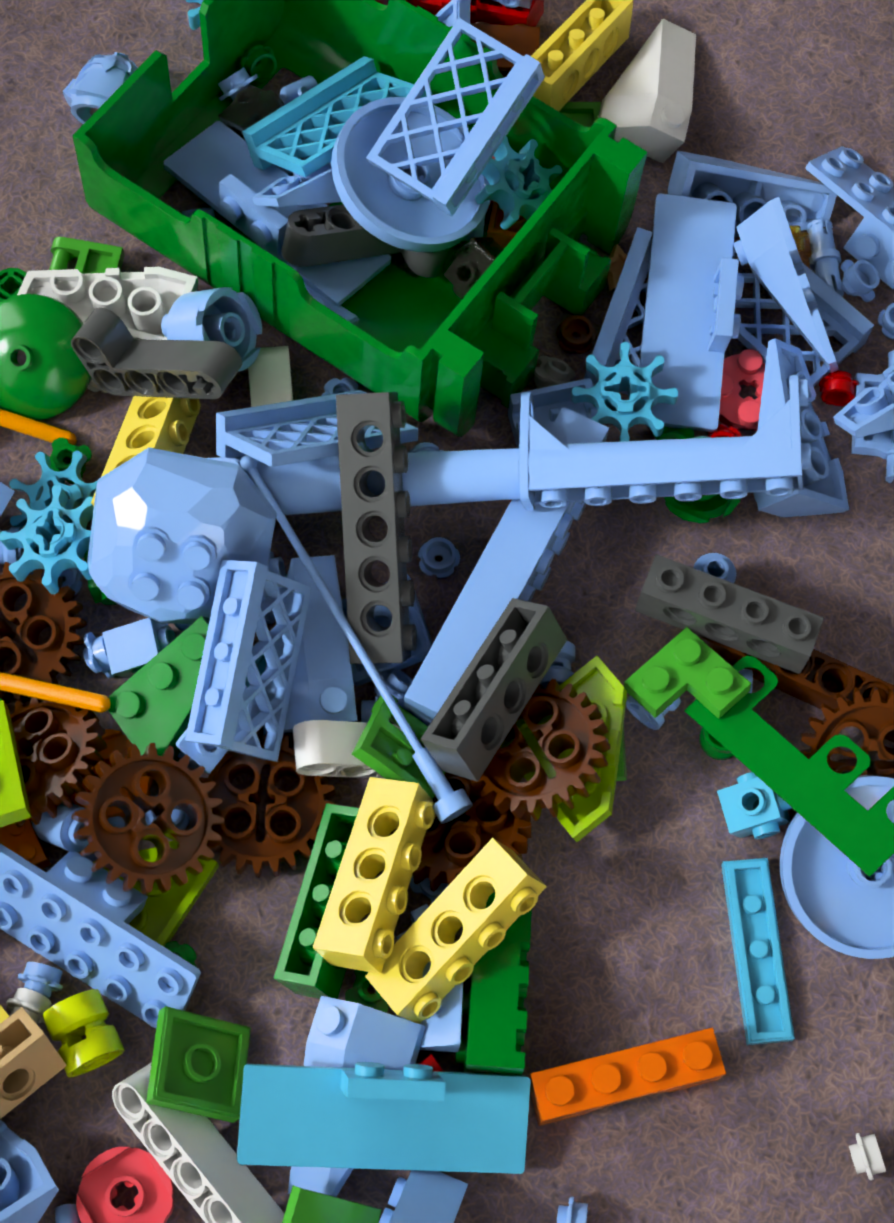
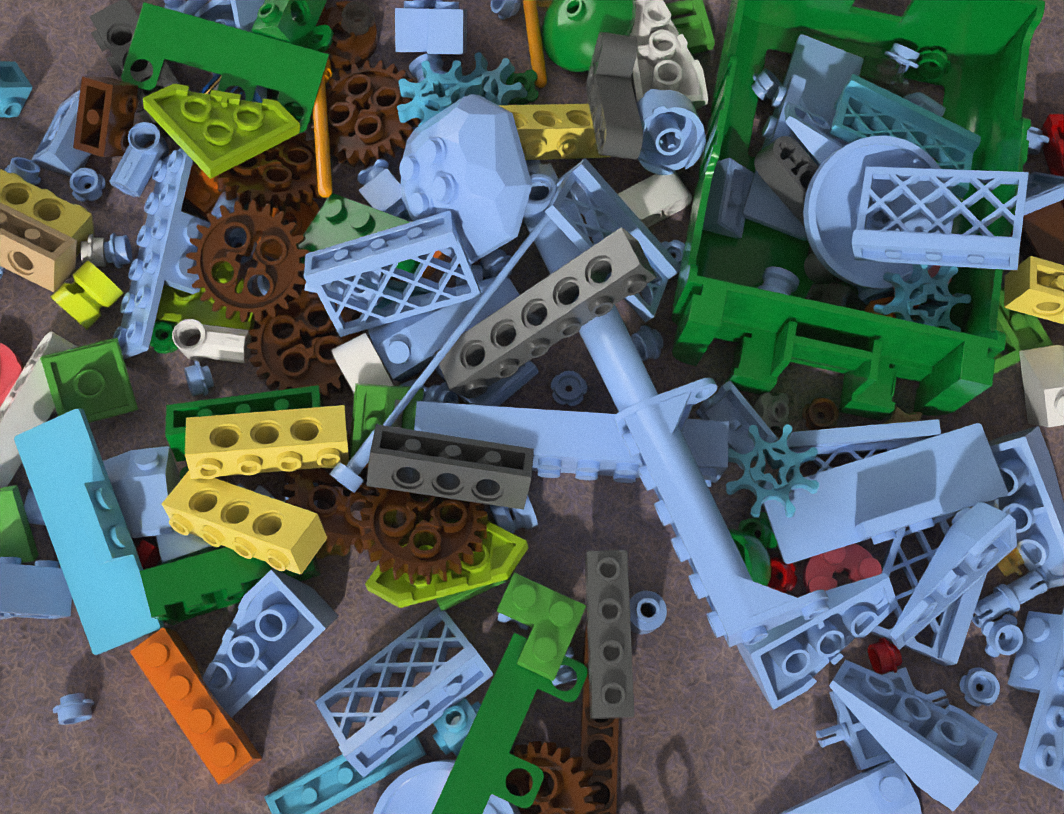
camera: 70 degrees right, 5 degrees up
(214, 905) = (215, 342): none -> white piece
(246, 943) = (198, 379): none -> light blue plate
(430, 307) = (779, 280): none -> light blue wheel
(586, 970) = (267, 633): none -> light blue wedge
(729, 844) = (416, 706): none -> light blue fence

